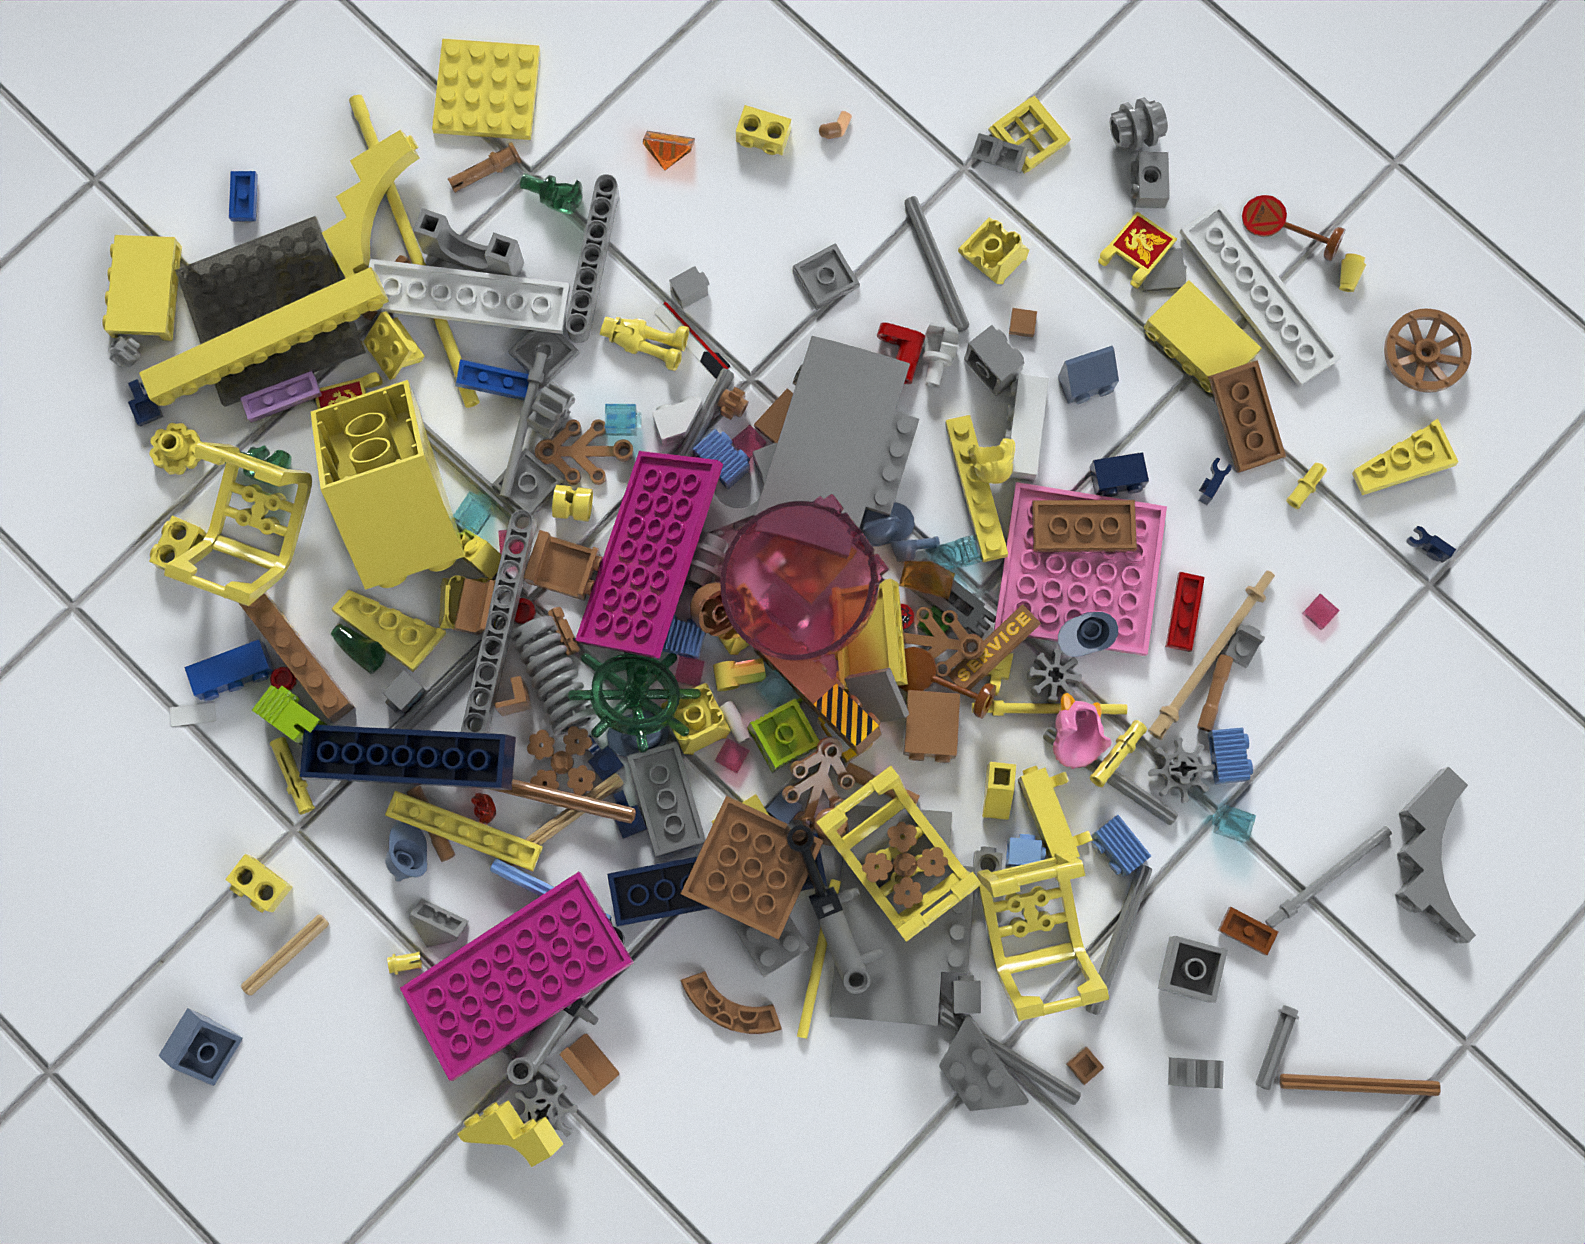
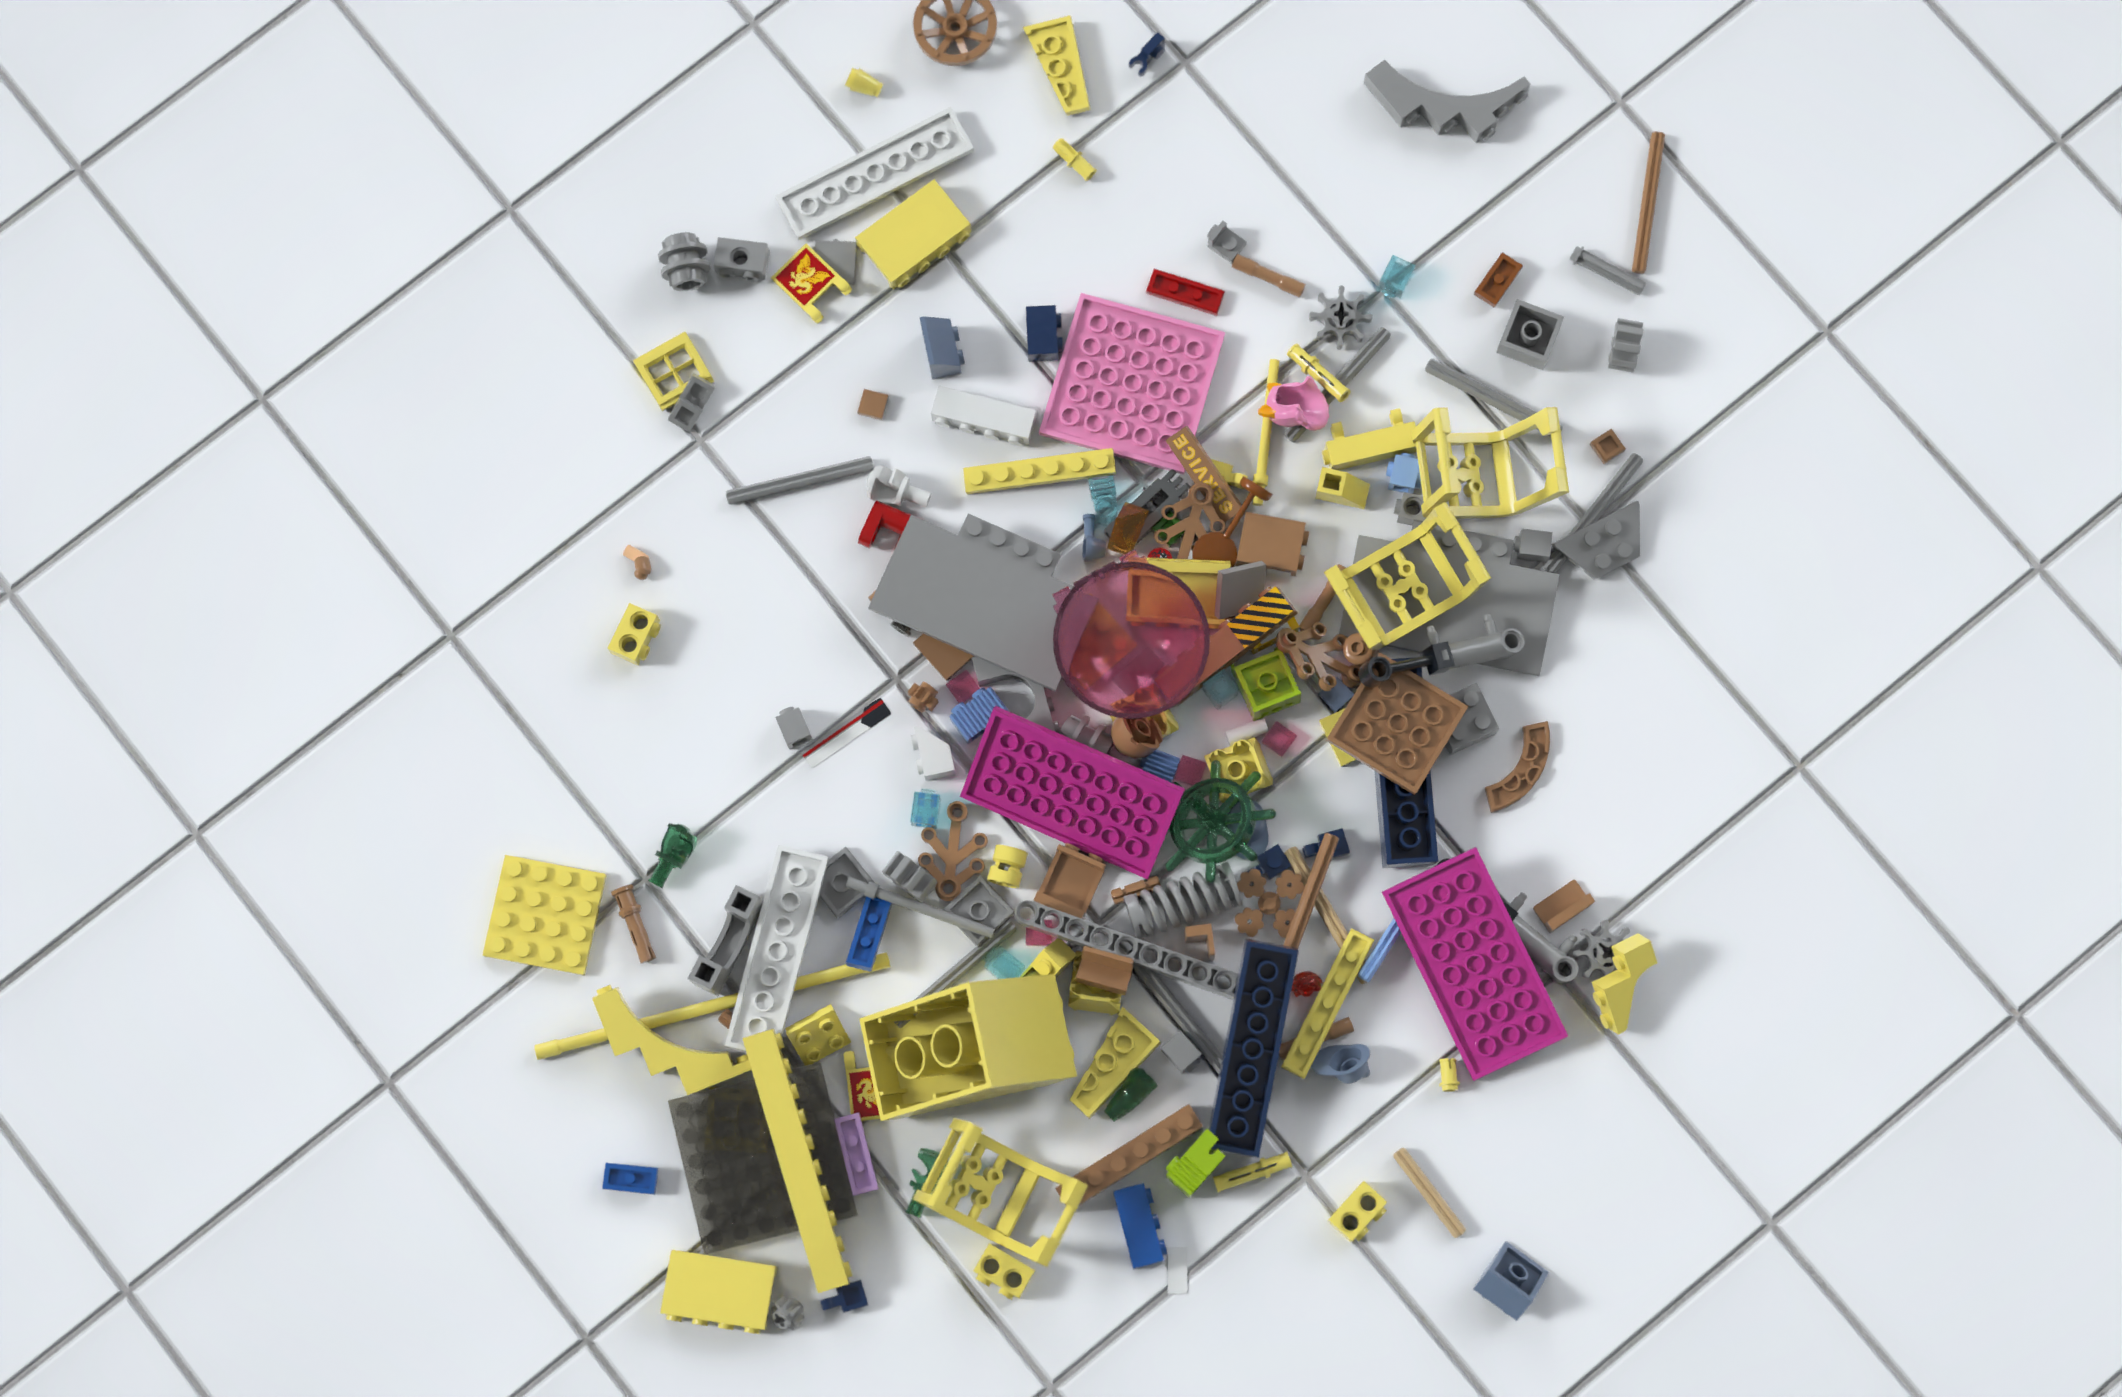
camera: 75 degrees left, 0 degrees up
(175, 448) = (884, 1267): light yellow plant -> none
(284, 677) = (1153, 1174): red plate -> none
(436, 924) = (1415, 1040): light grey slope -> none
(525, 612) = (1112, 923): red tile -> none
(592, 246) = (739, 813): light grey beam -> none
(633, 333) = (835, 790): light yellow piece -> none
(666, 799) = (1316, 805): light grey plate -> none
(667, 148) = (637, 733): clear orange slope -> none
(706, 413) = (918, 719): light grey axle -> none
(731, 675) = (1200, 728): light yellow piece -> none
(814, 978) = (1499, 684): light yellow bar -> none
(826, 276) = (798, 591): light grey tile -> none
(886, 529) = (1071, 565): sand blue piece -> none
(905, 864) = (1408, 582): medium nougat plant -> none
(993, 463) = (1020, 448): light yellow hair -> none
(994, 250) = (794, 422): light yellow slope -> none
(994, 359) = (913, 434): light grey brick -> none
(1047, 681) = (1246, 424): light grey gear -> none
(1084, 526) = (1092, 373): medium nougat tile -> none
(1087, 634) = (1202, 382): sand blue piece -> none
(1120, 846) = (1407, 384): medium blue brick -> none
(1170, 713) = (1283, 319): tan bar -> none
(1210, 486) = (1065, 248): dark blue plate -> none
(1230, 755) = (1331, 271): medium blue brick -> none
(1247, 416) = (1000, 203): medium nougat tile -> none
(1267, 216) = (793, 154): dark orange piece -> none
(1290, 908) = (1480, 238): light grey bar -> none
(1320, 611) = (1200, 166): clear pink tile -> none

